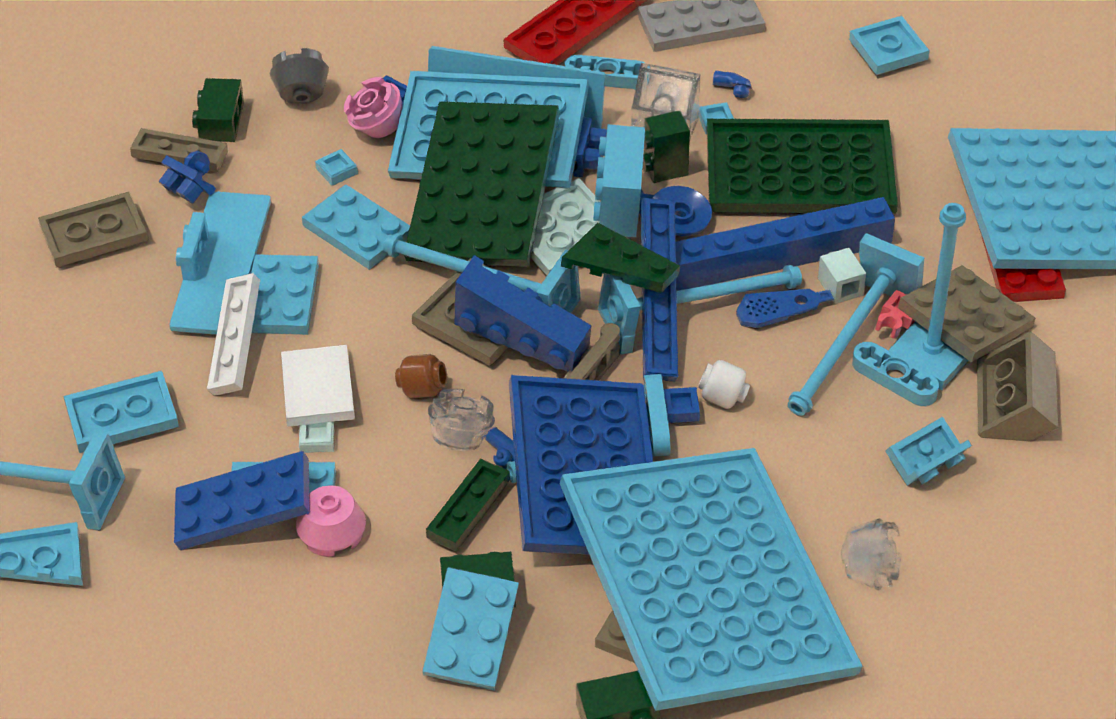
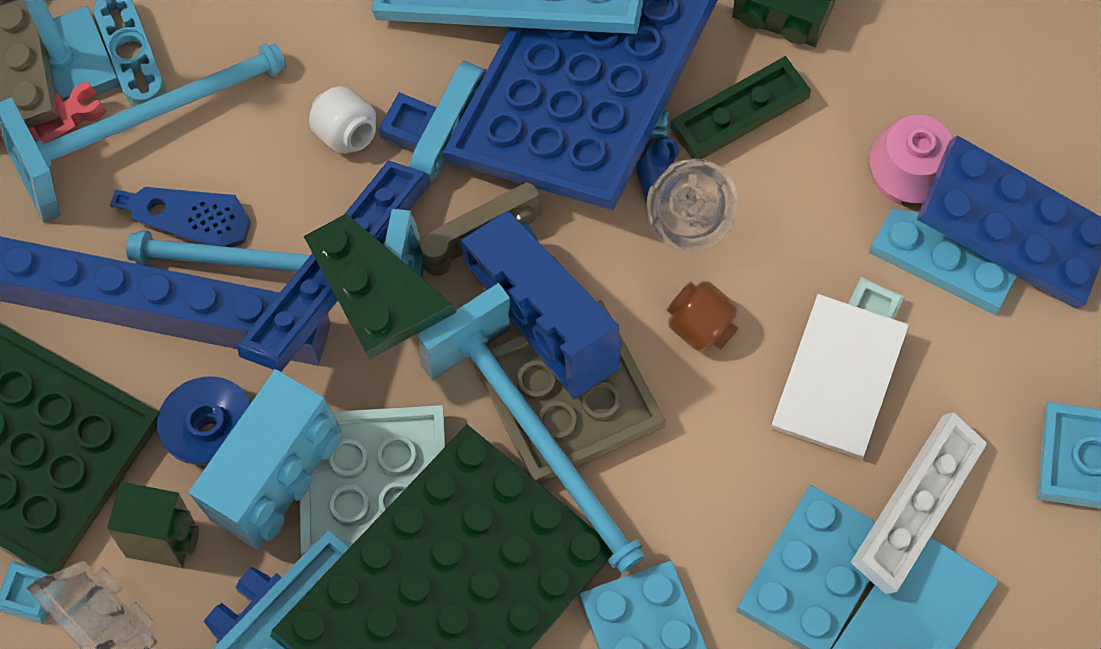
camera: 150 degrees left, 20 degrees up
(842, 275) = (81, 210): light aqua brick -> none

